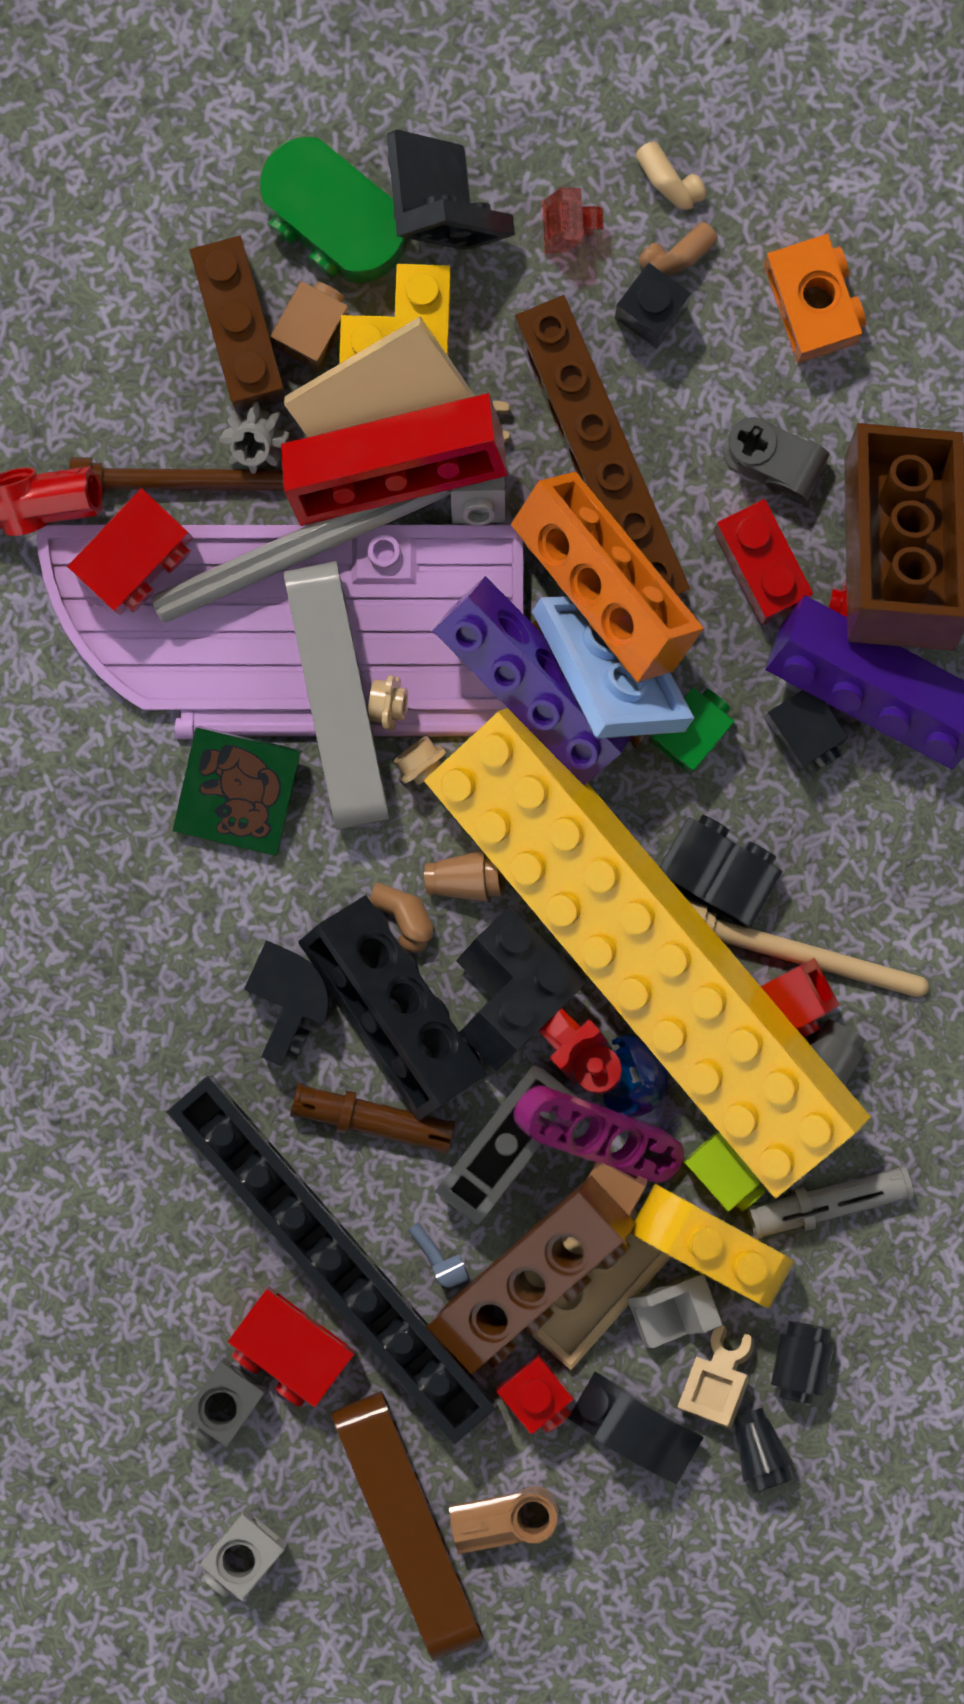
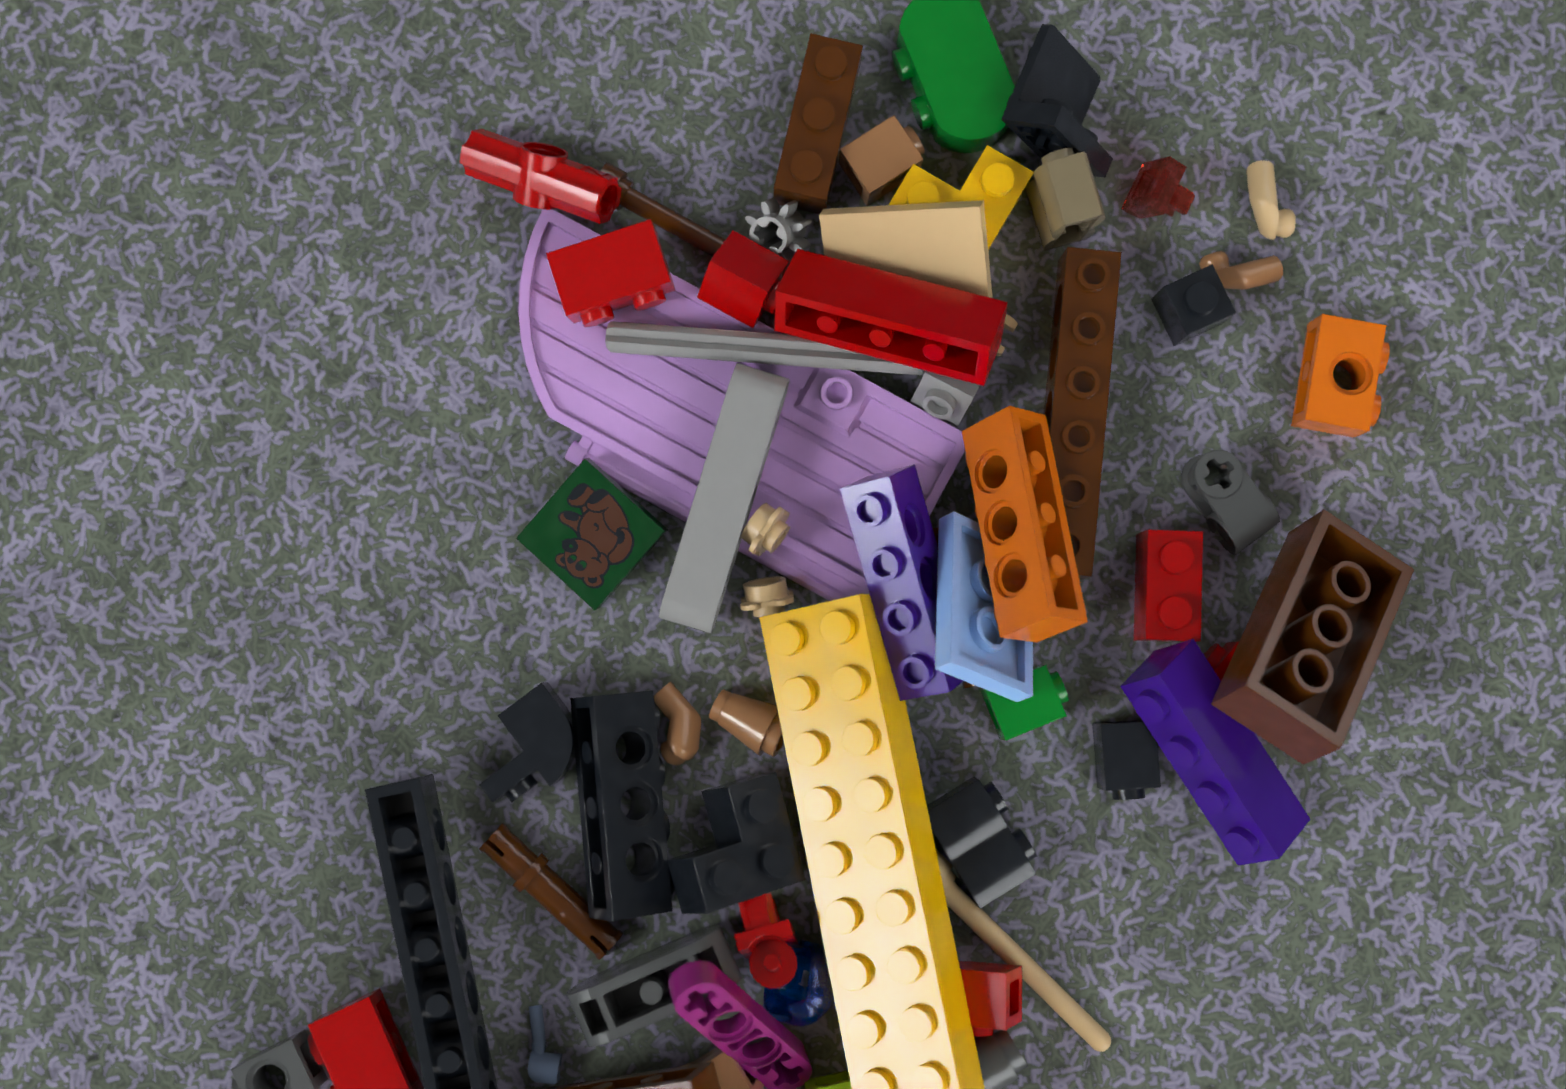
camera: 25 degrees right, 0 degrees up
(248, 496) = (743, 279): none -> red brick
(489, 274) = (1064, 199): none -> dark tan brick

